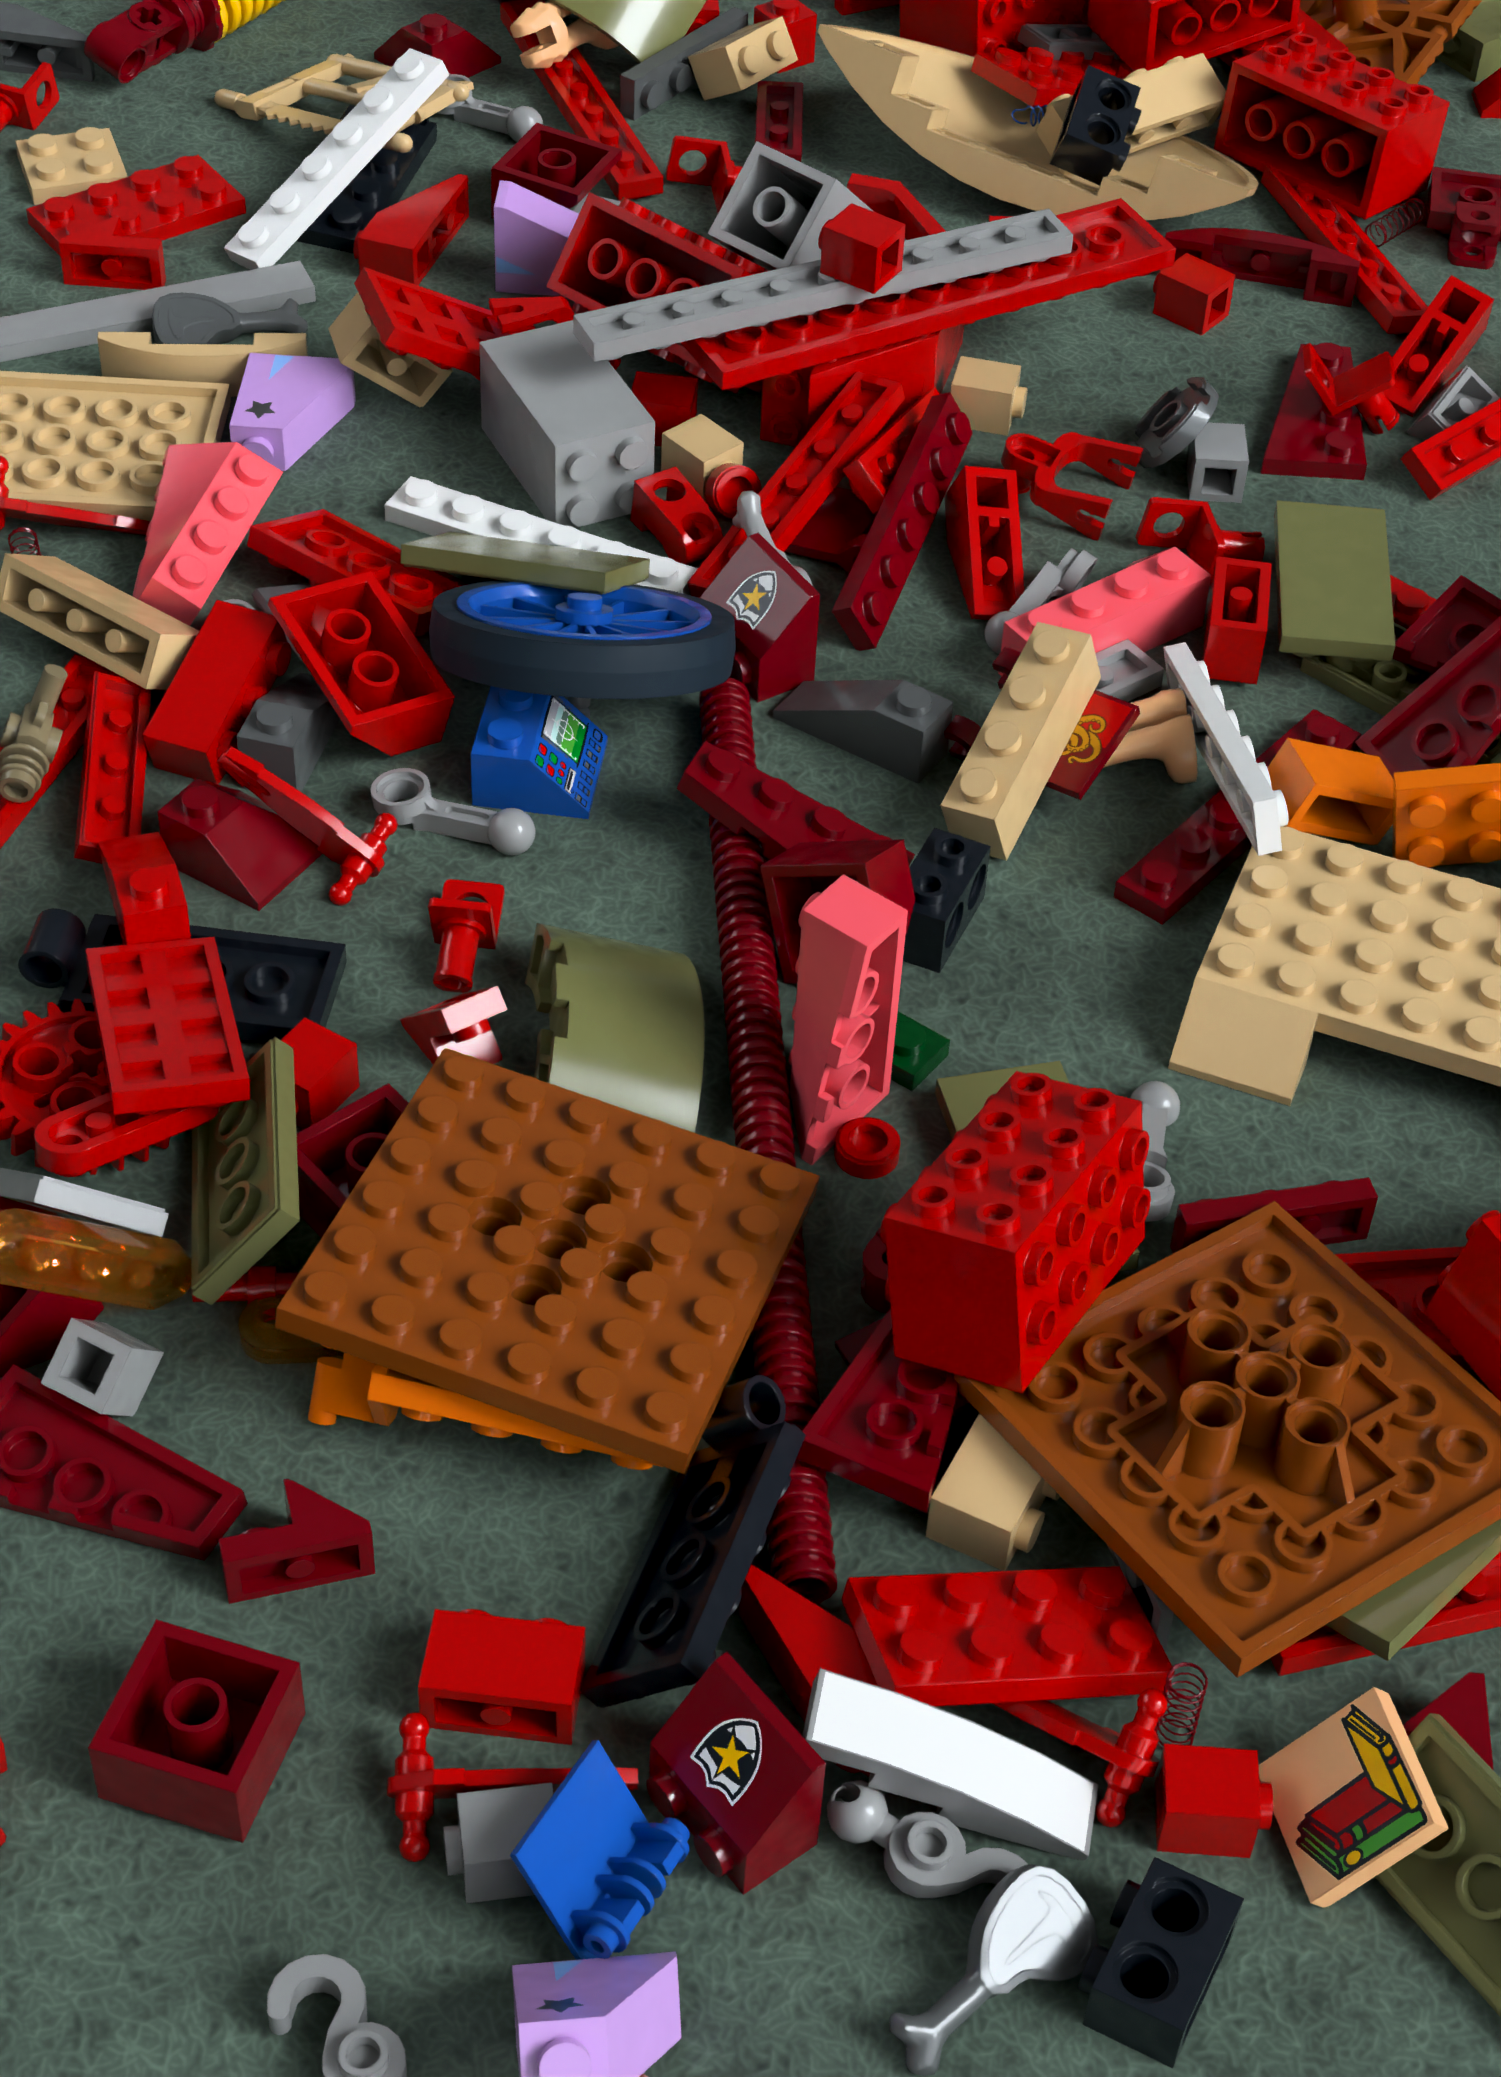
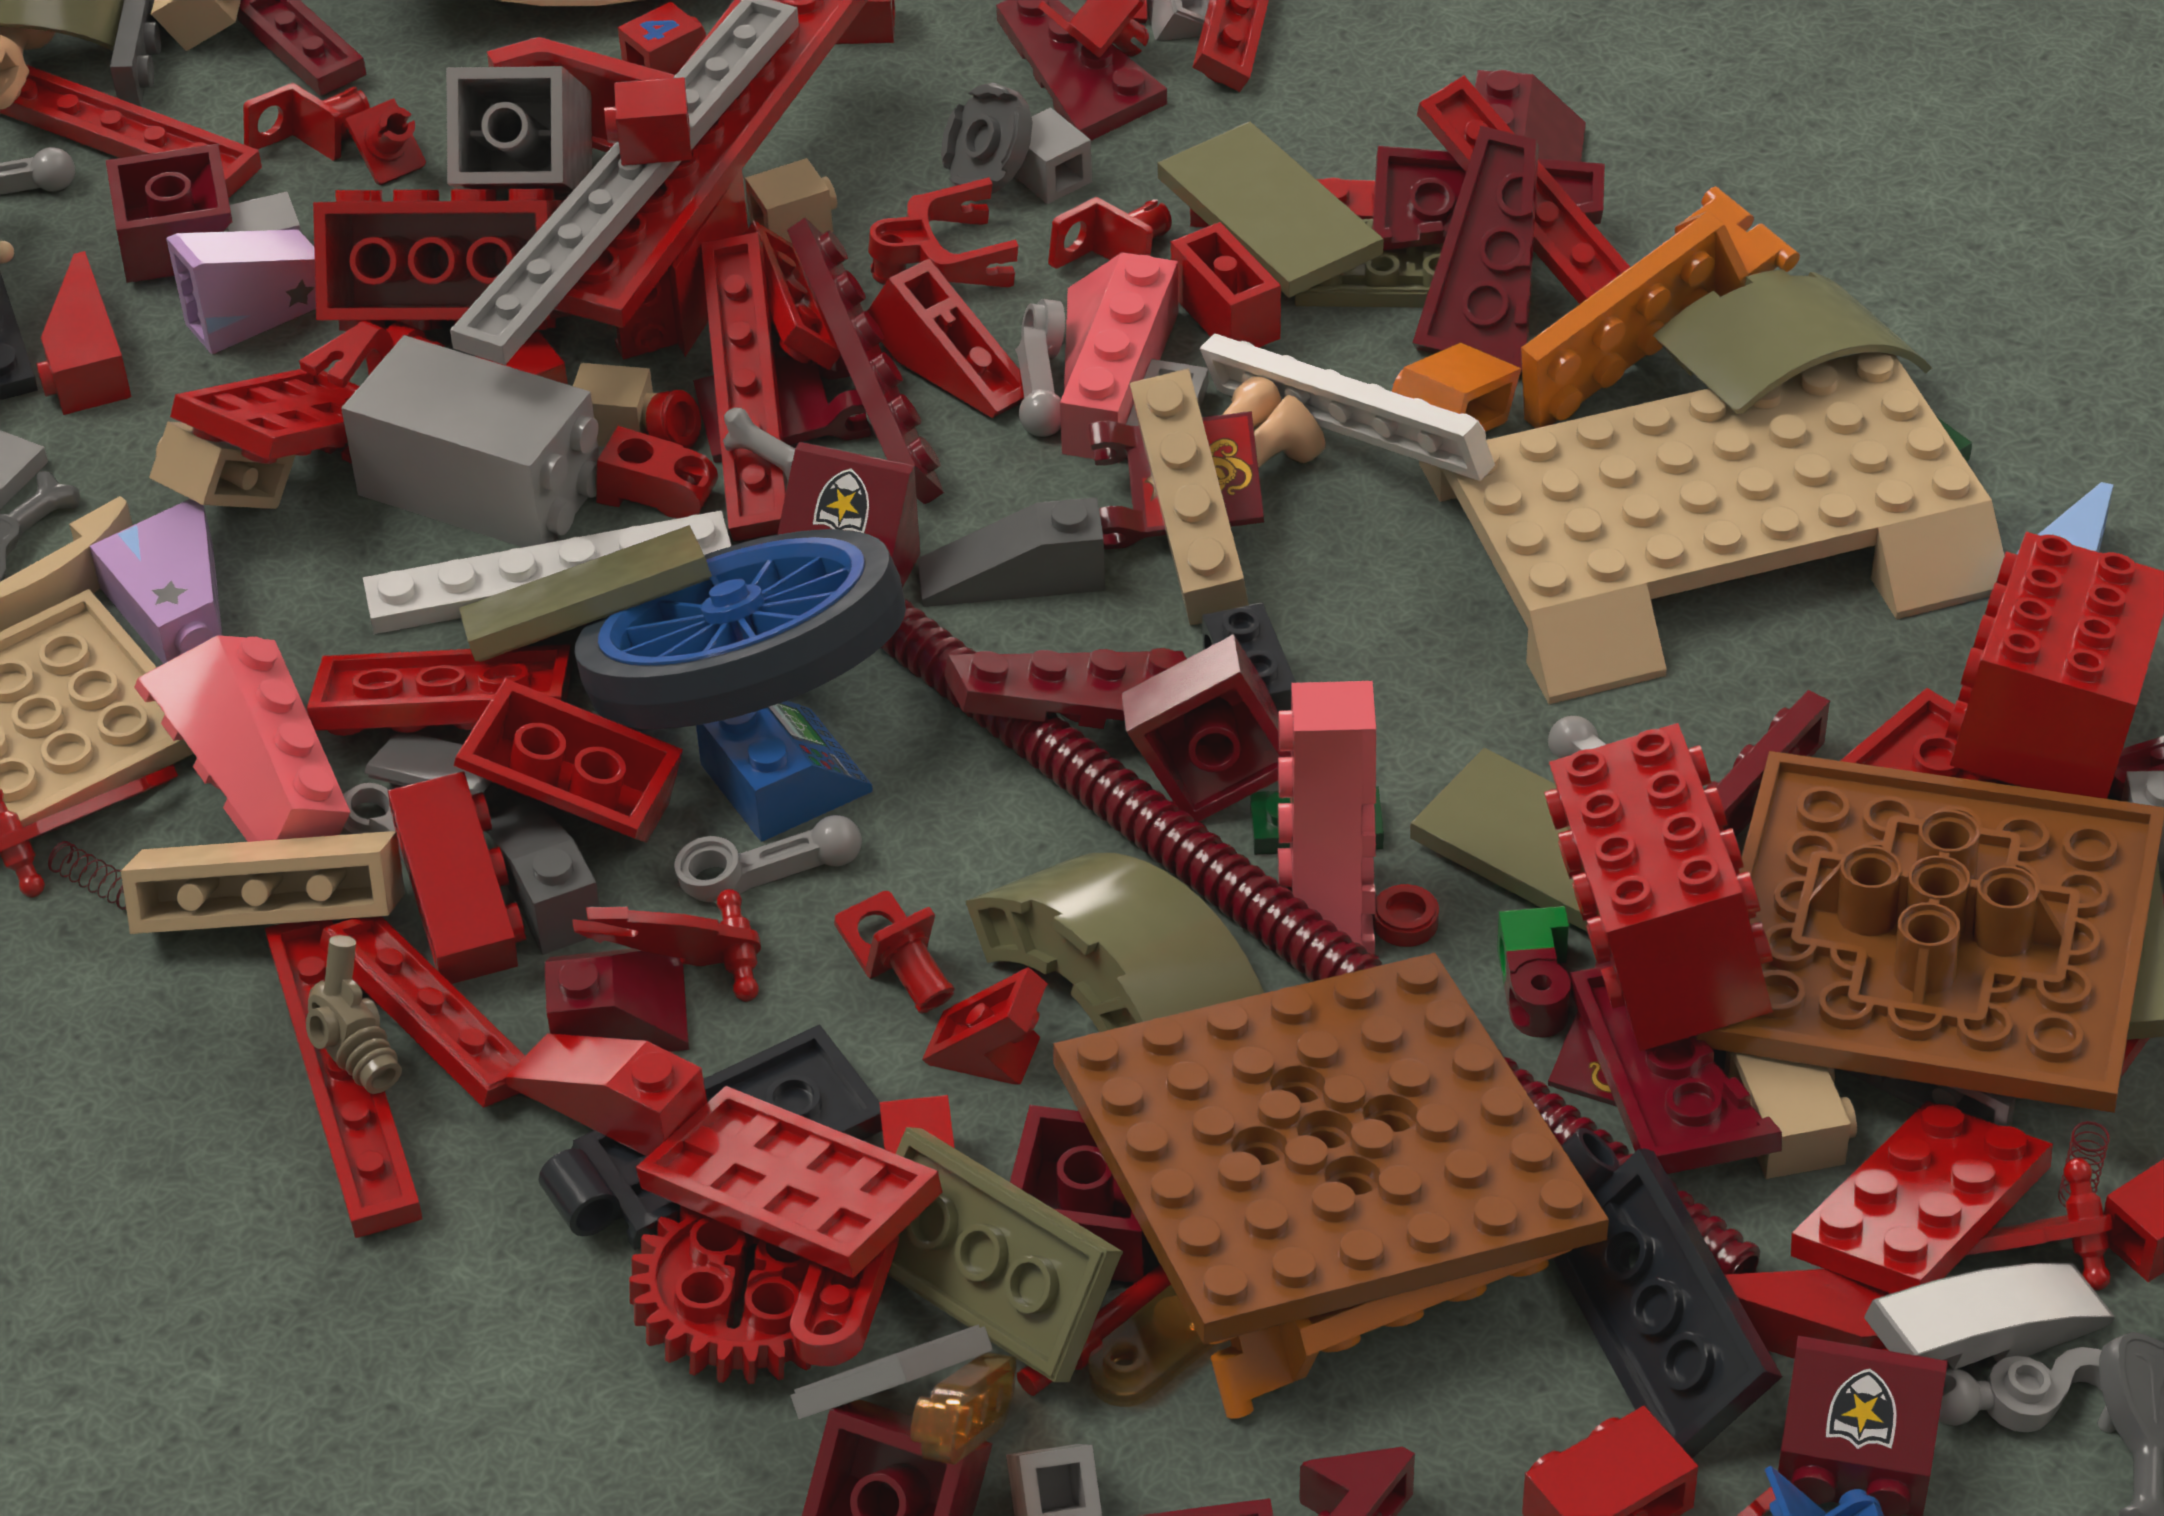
camera: 35 degrees left, 0 degrees up
(1210, 837) = (1385, 479): dark red plate -> none

